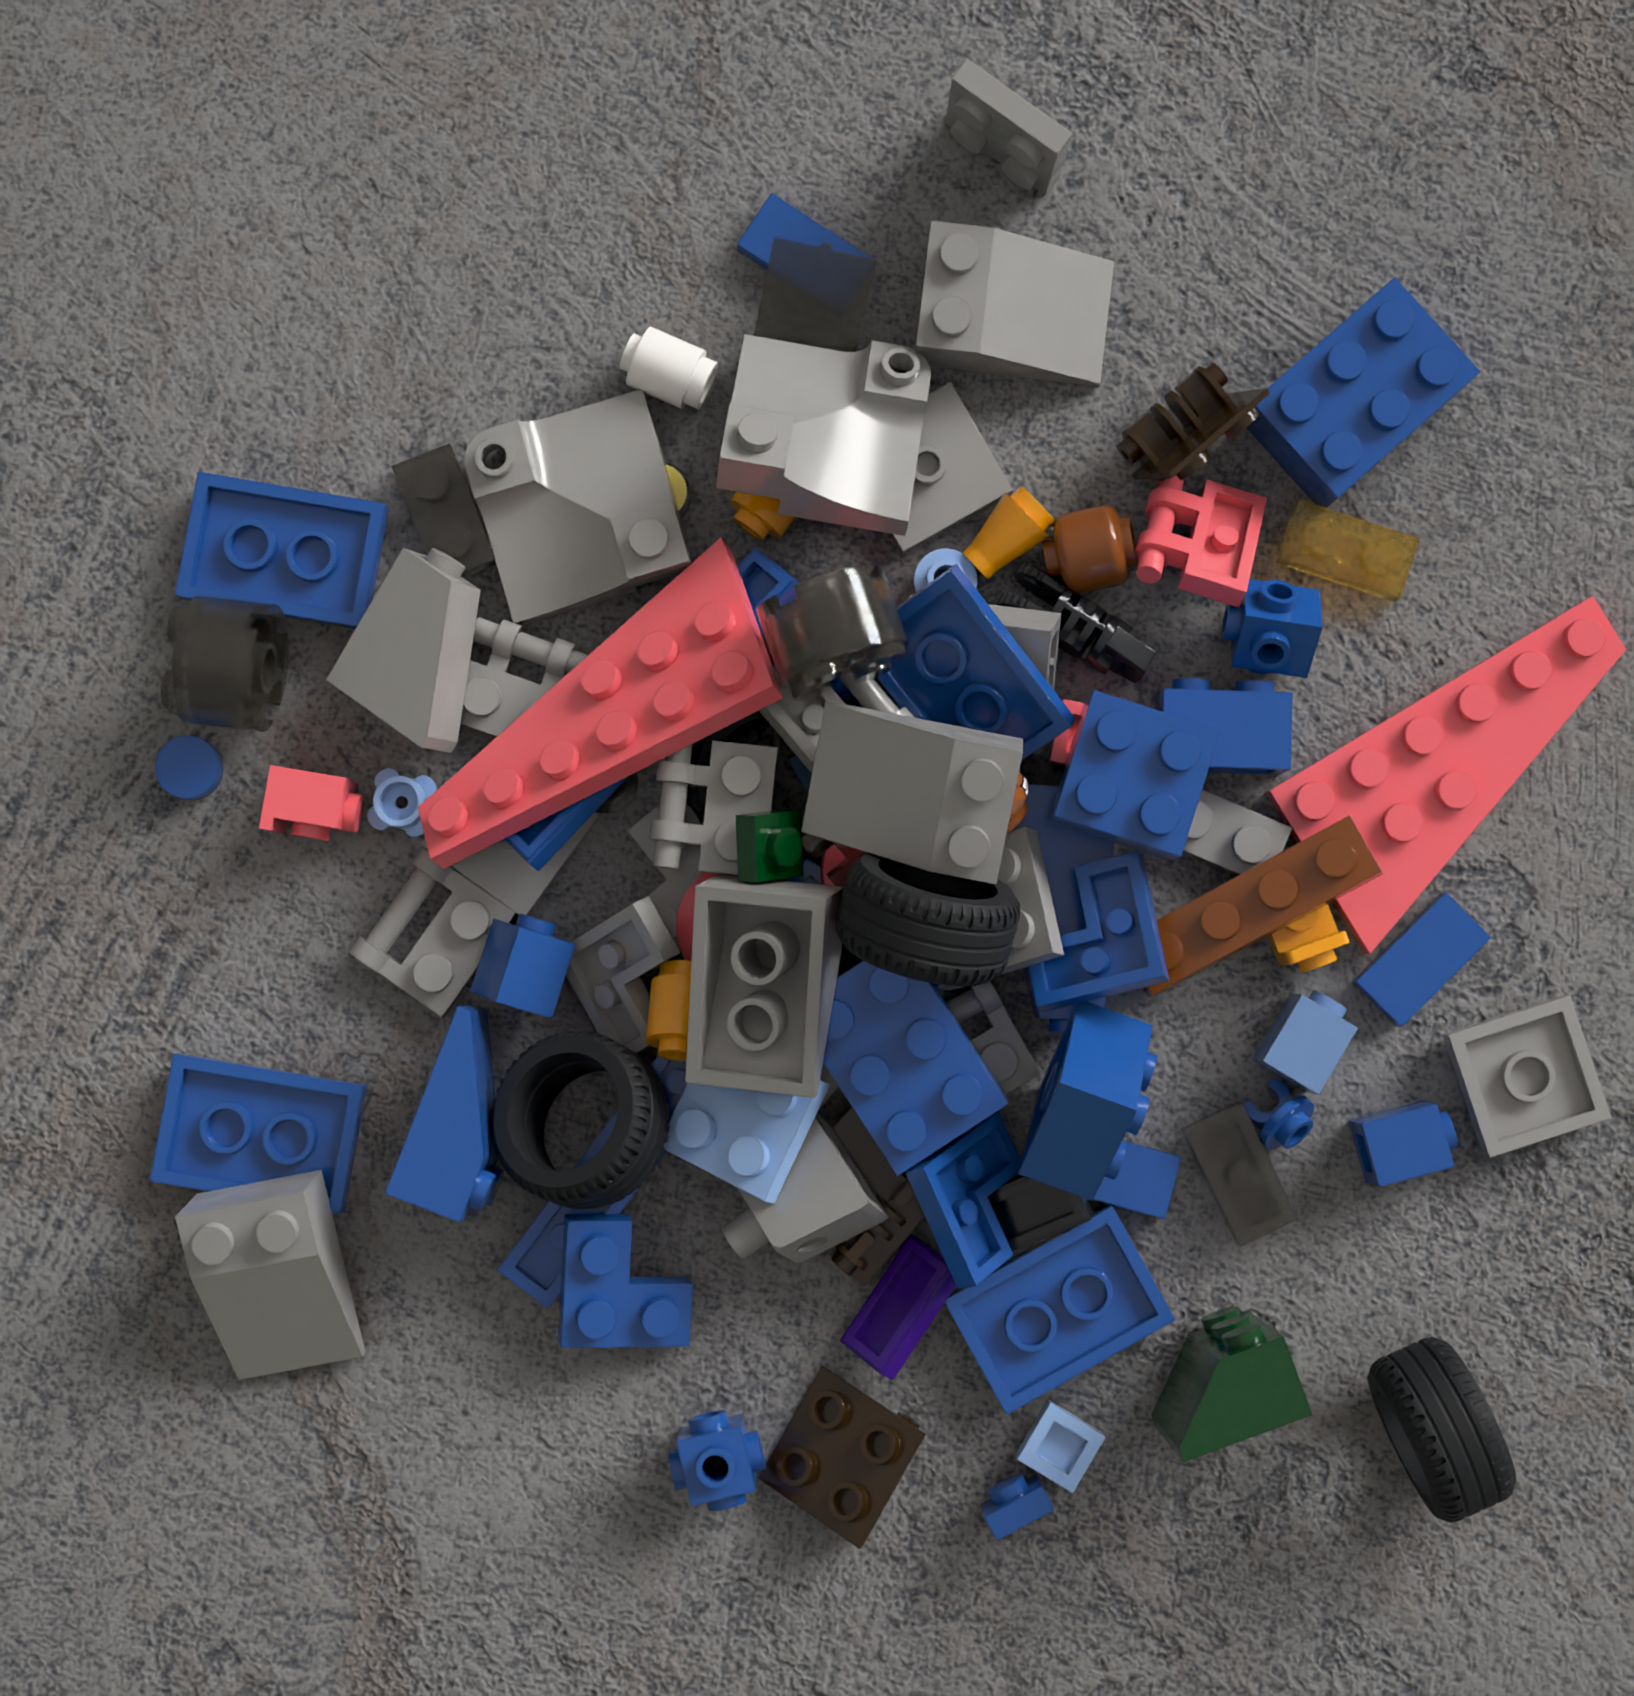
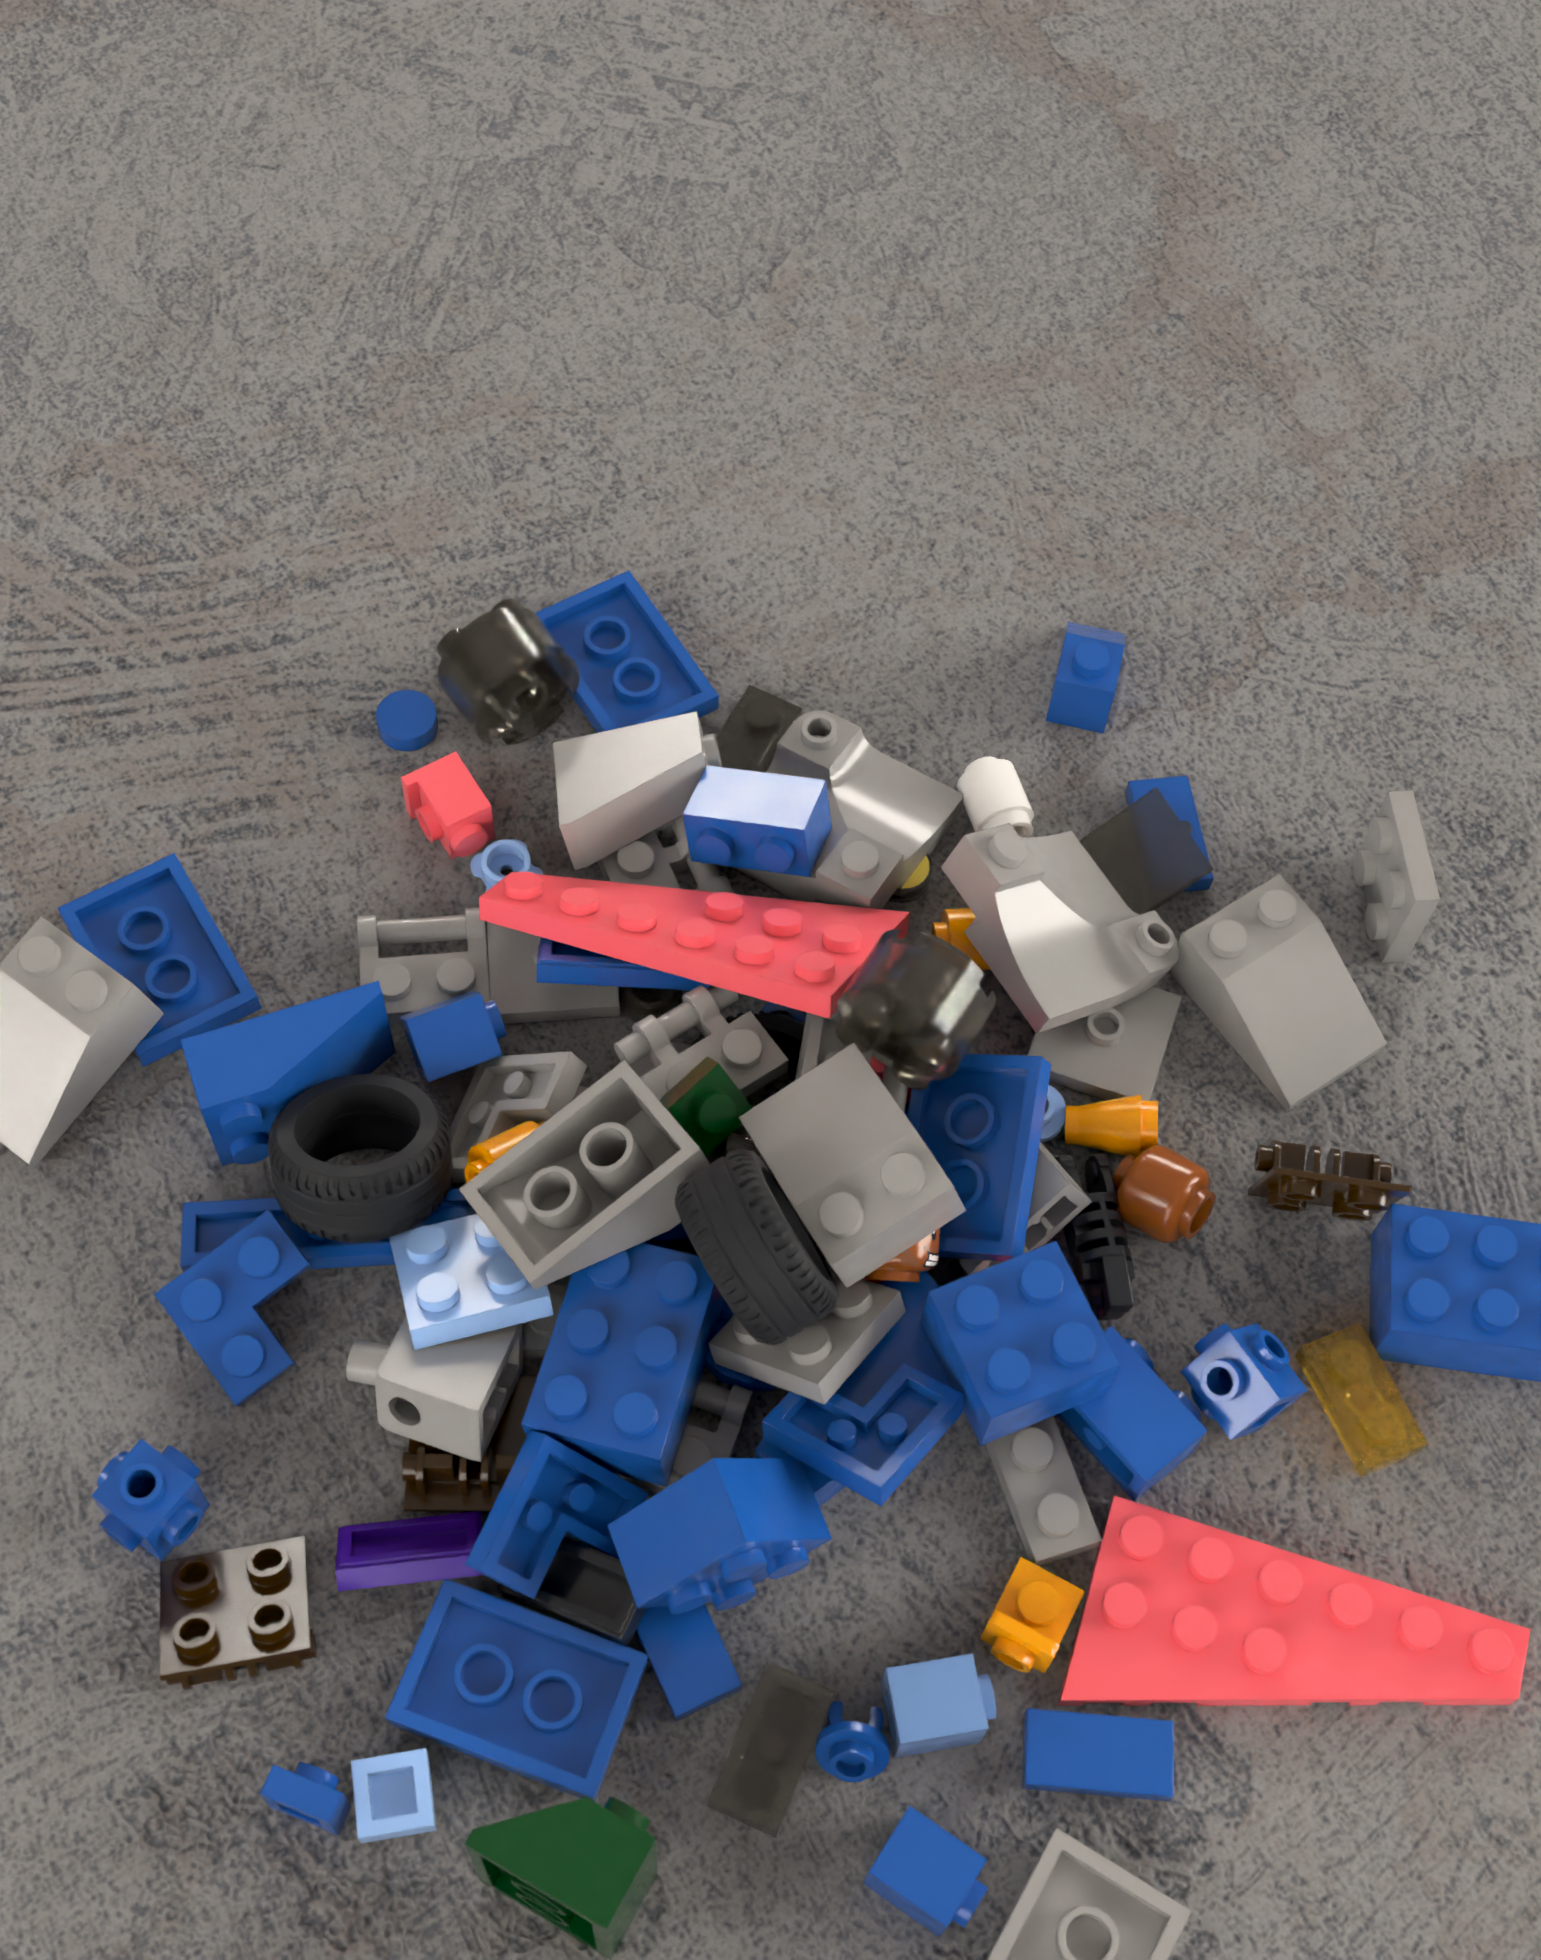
camera: 45 degrees right, 25 degrees down
(543, 585) = (757, 820): none -> brick
(611, 180) = (1086, 677): none -> blue slope
(1221, 542) = (1257, 1282): coral plate -> none
(1264, 900) = (1010, 1556): dark orange plate -> none

